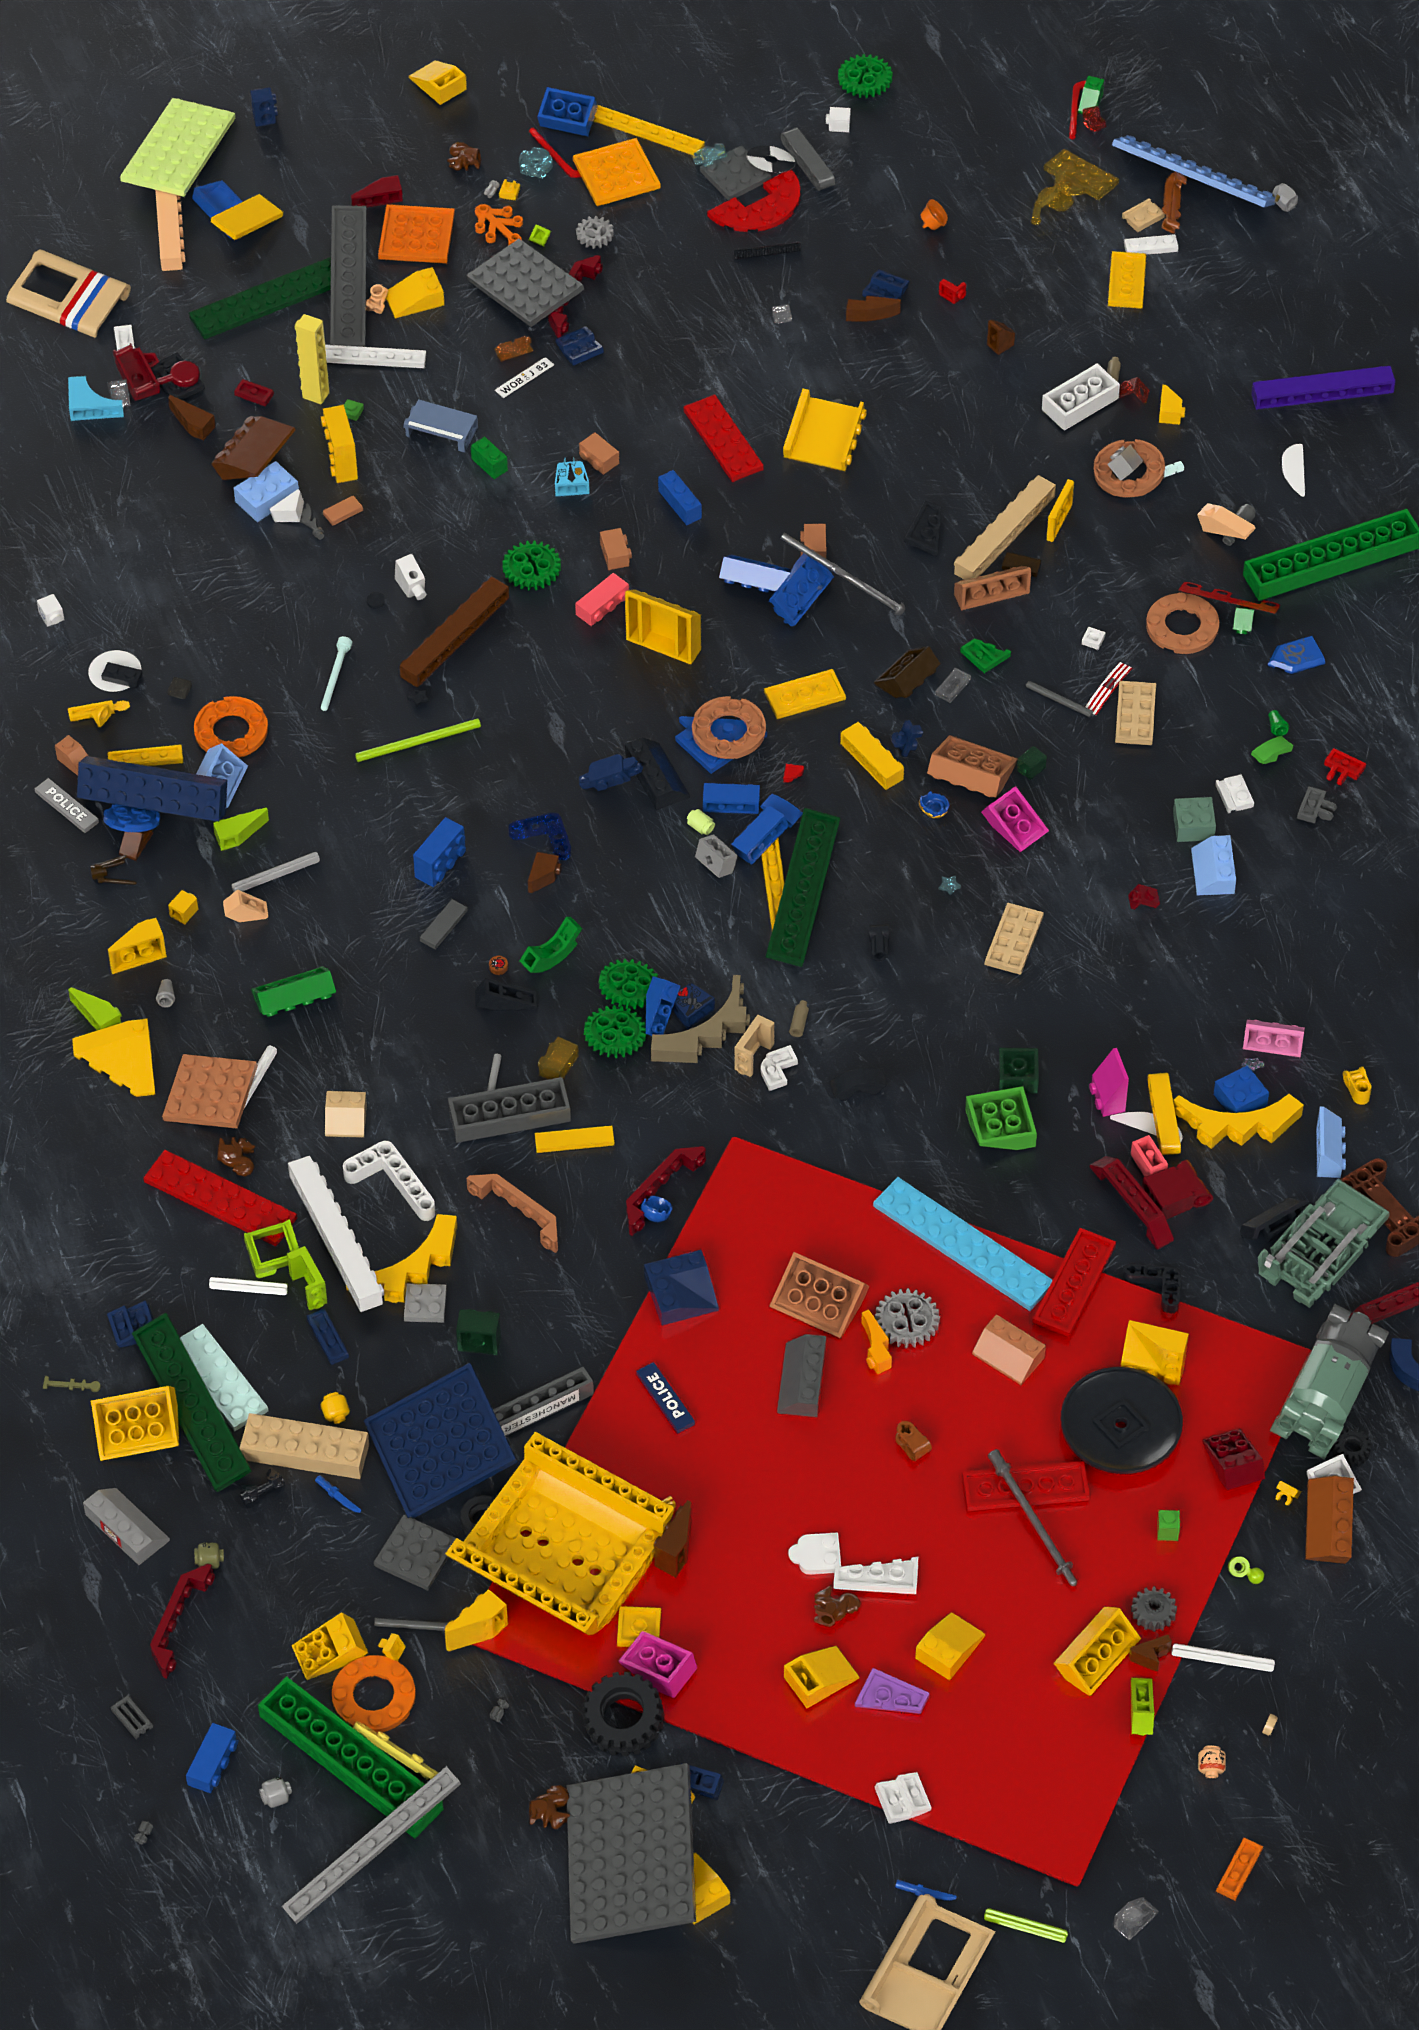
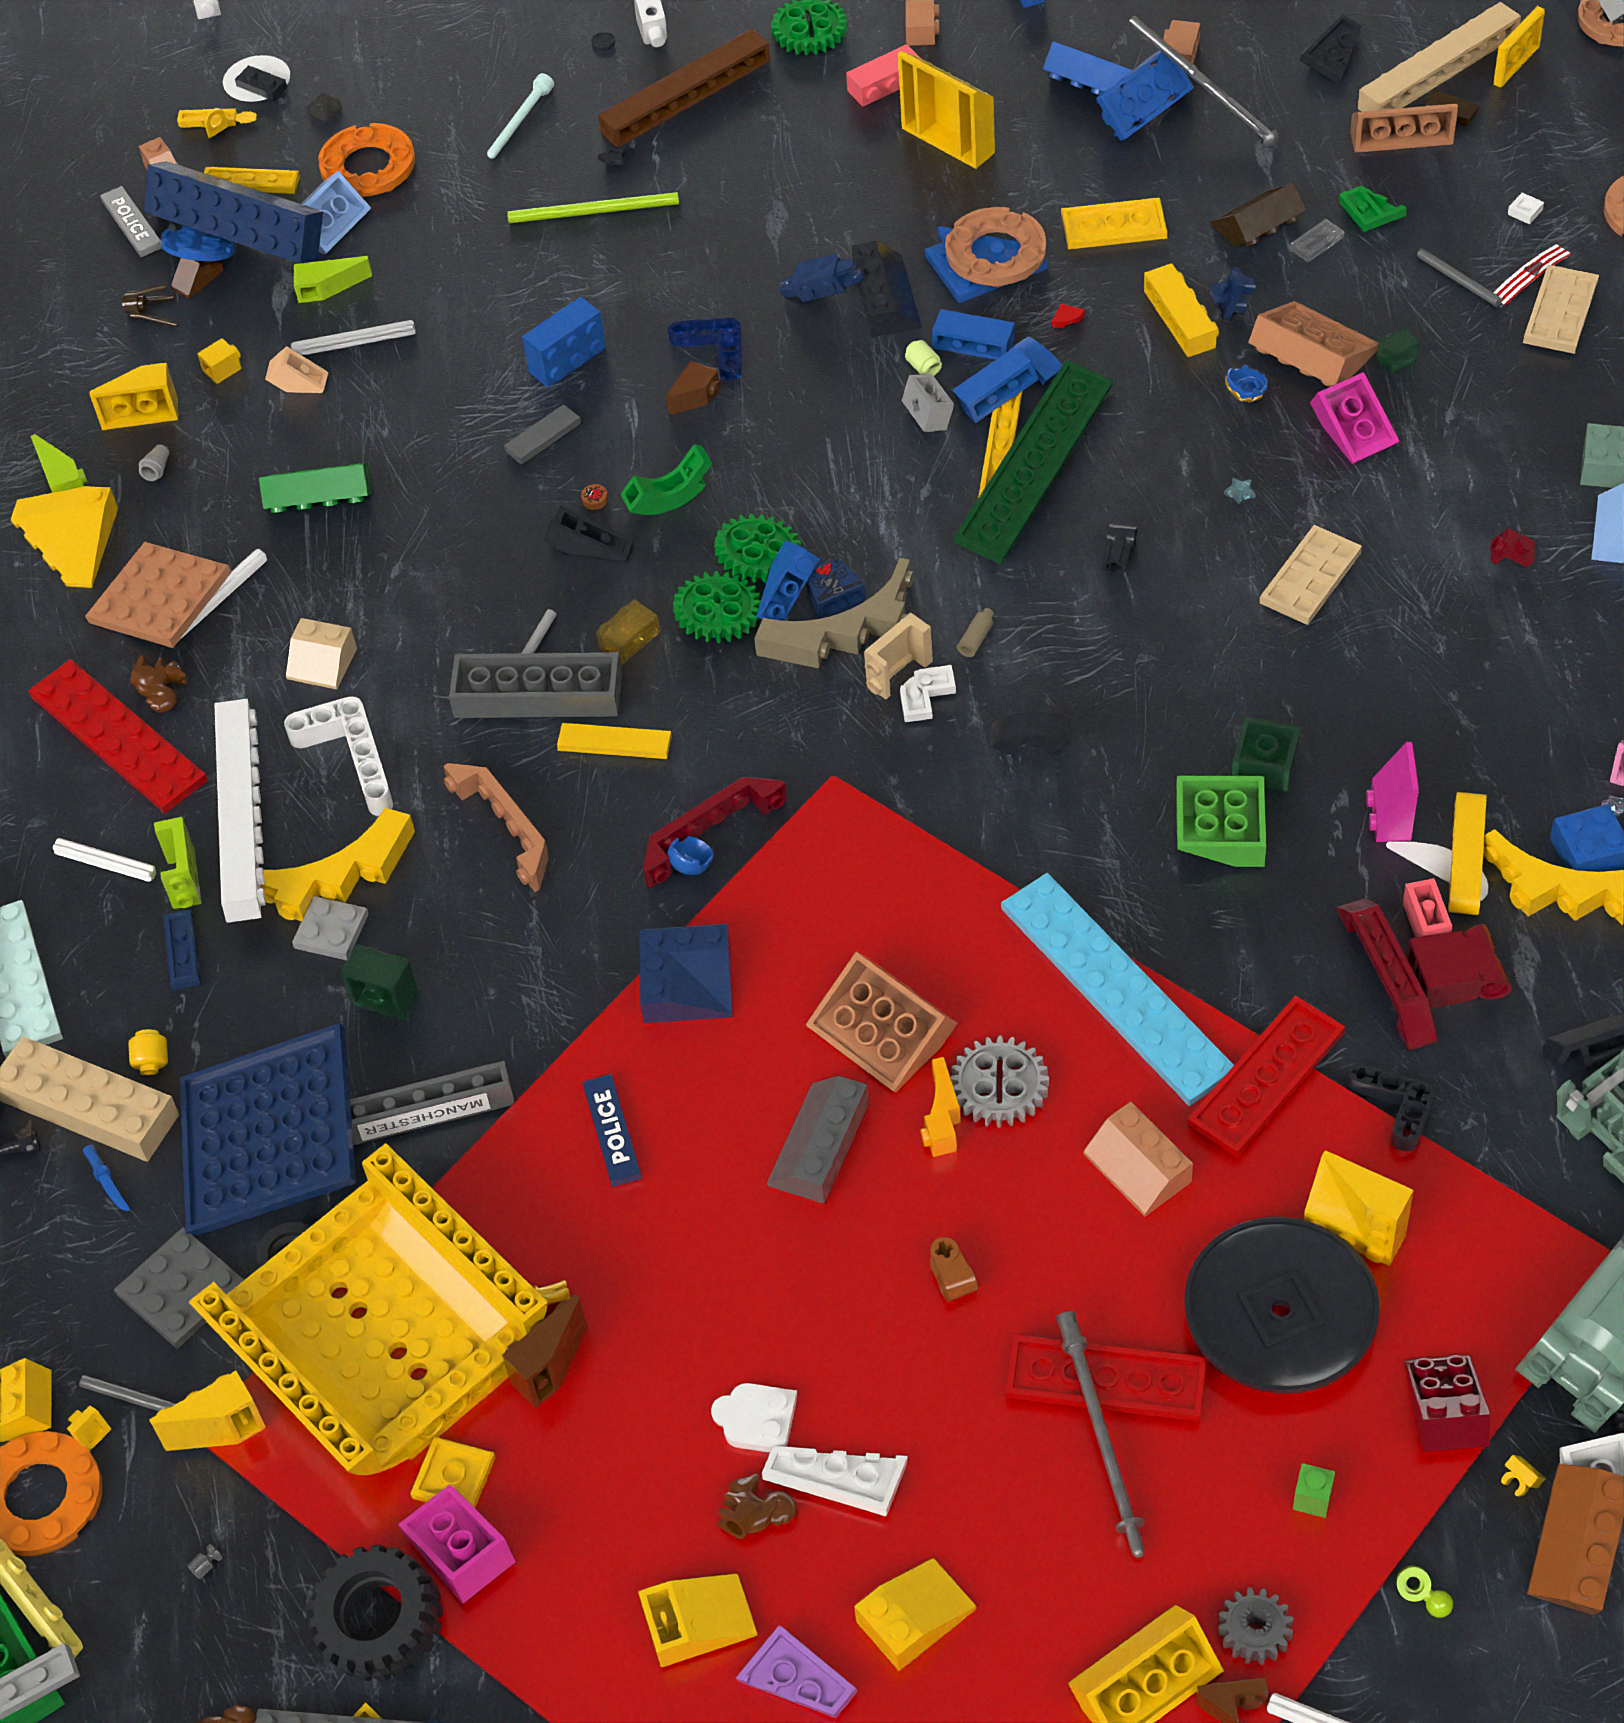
camera: 20 degrees right, 0 degrees up
(269, 1267) = (142, 839): lime piece -> none

